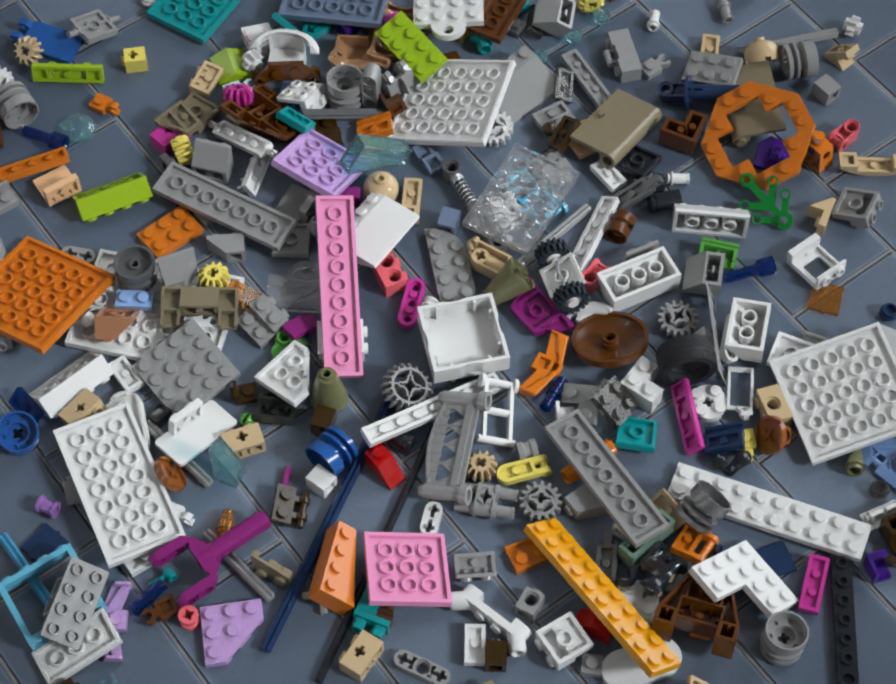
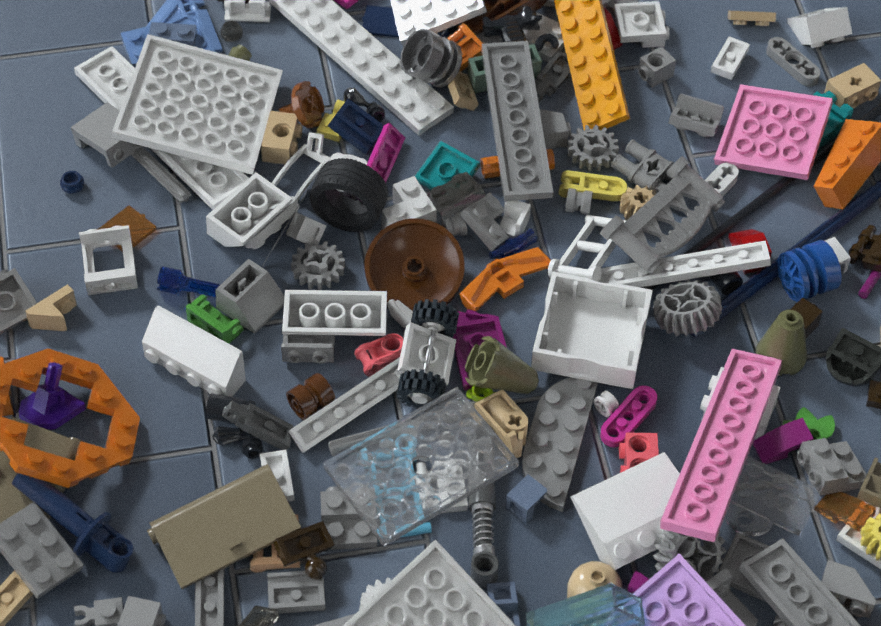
camera: 155 degrees left, 5 degrees down
(288, 374) = (827, 378): white plate -> none
(412, 195) = (559, 555): tan plate -> none
(496, 655) = (713, 38): dark brown brick -> none
(516, 632) = (686, 52): white plate -> none
(524, 555) = (641, 117): orange plate -> none
(639, 162) = (222, 468): black plate -> none
(677, 178) = (191, 435): white pin -> none
(683, 135) = (139, 476): reddish brown brick -> none
(768, 203) = (106, 328): green plant -> none

